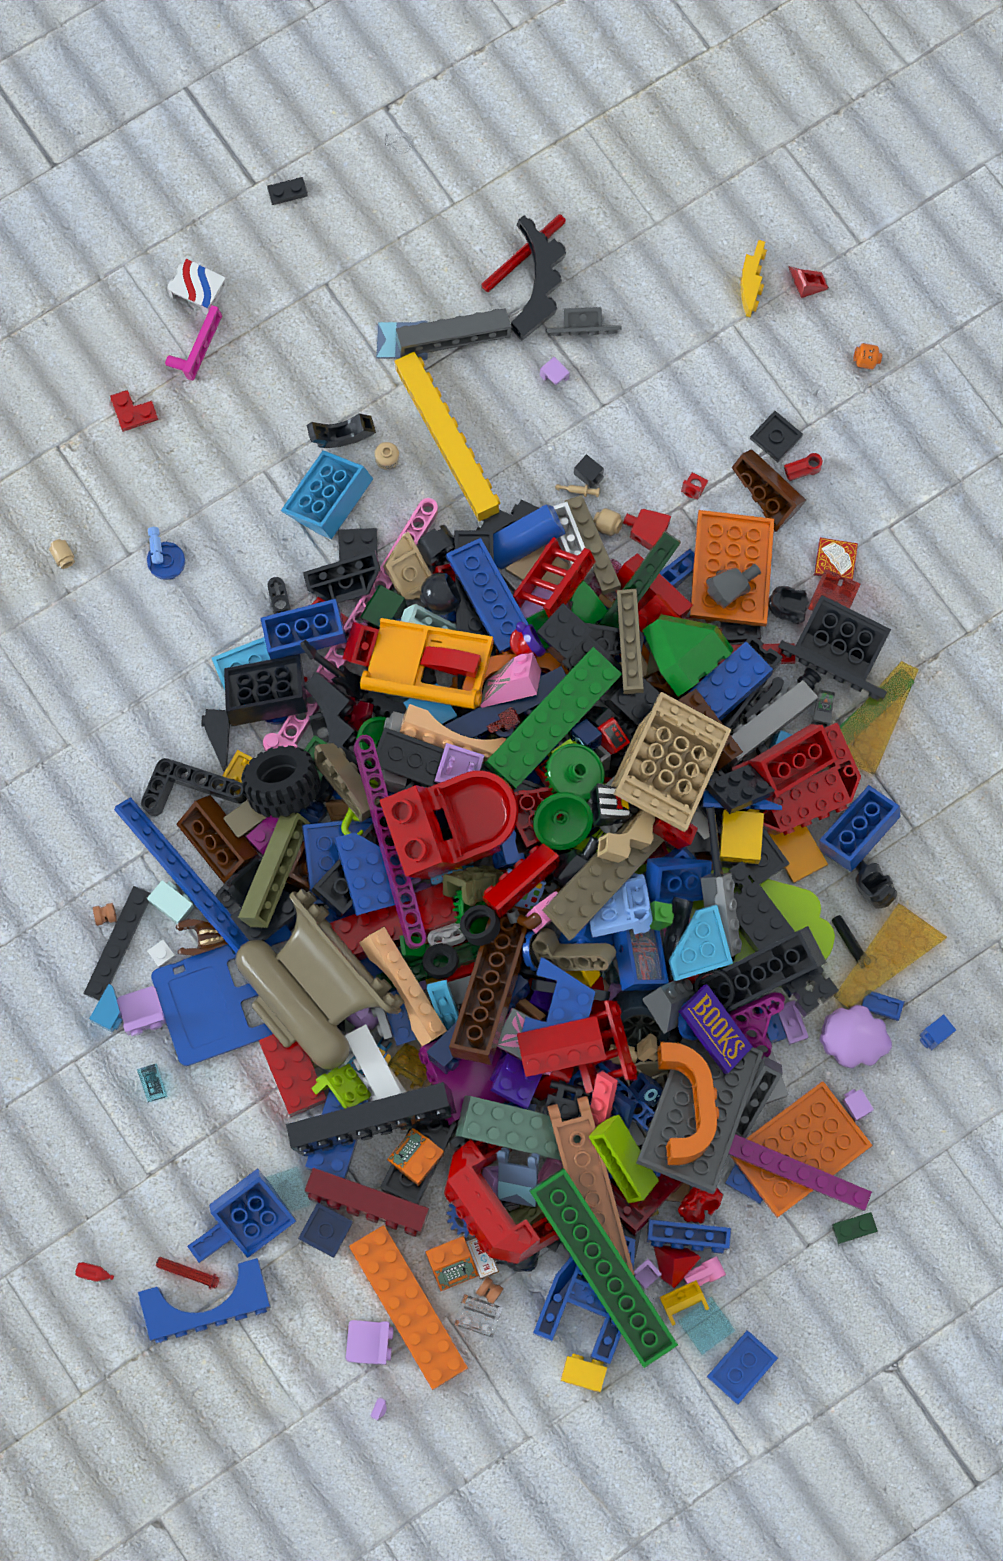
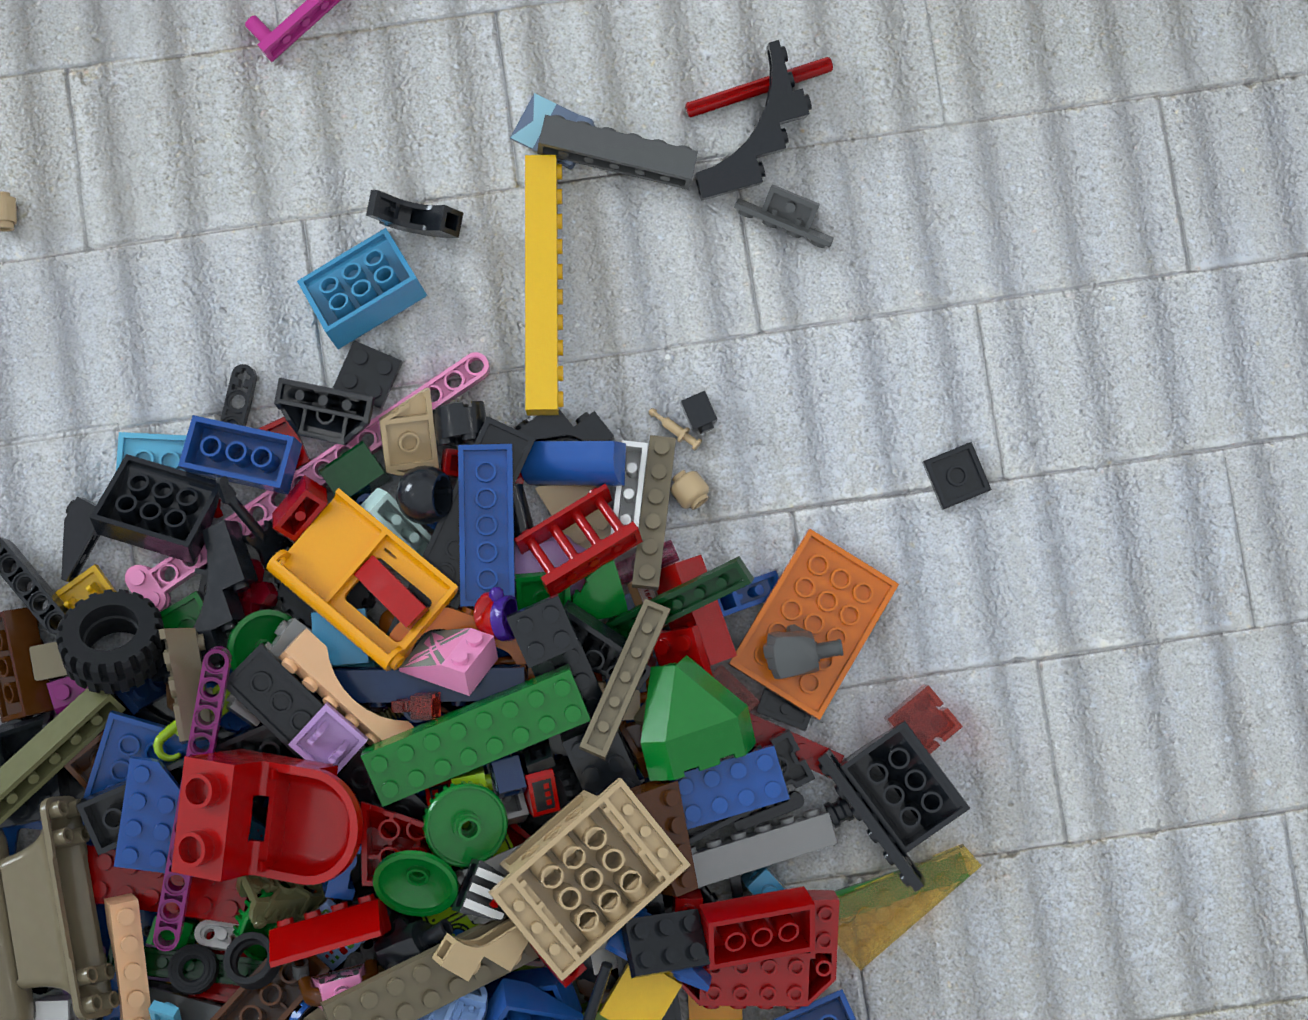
camera: 25 degrees right, 10 degrees up
(129, 415) = (172, 72): red plate -> none
(155, 545) = (118, 255): light blue axle -> none
(172, 563) = (126, 279): blue tile -> none
(386, 455) = (457, 274): tan head -> none
(554, 371) = (719, 262): lavender panel -> none
(647, 526) = (735, 520): red torso -> none
(692, 490) = (812, 497): red bracket -> none
(750, 279) = (1024, 262): yellow slope -> none
(768, 488) = (911, 541): reddish brown wedge -> none
(788, 604) = (861, 704): black hair -> none
(802, 468) = (967, 533): red piece -> none
(808, 281) = (1098, 292): red slope -> none
(823, 708) = (838, 856): leg -> none
(836, 557) = (951, 671): tile -> none
(867, 356) = (1123, 427): orange head -> none

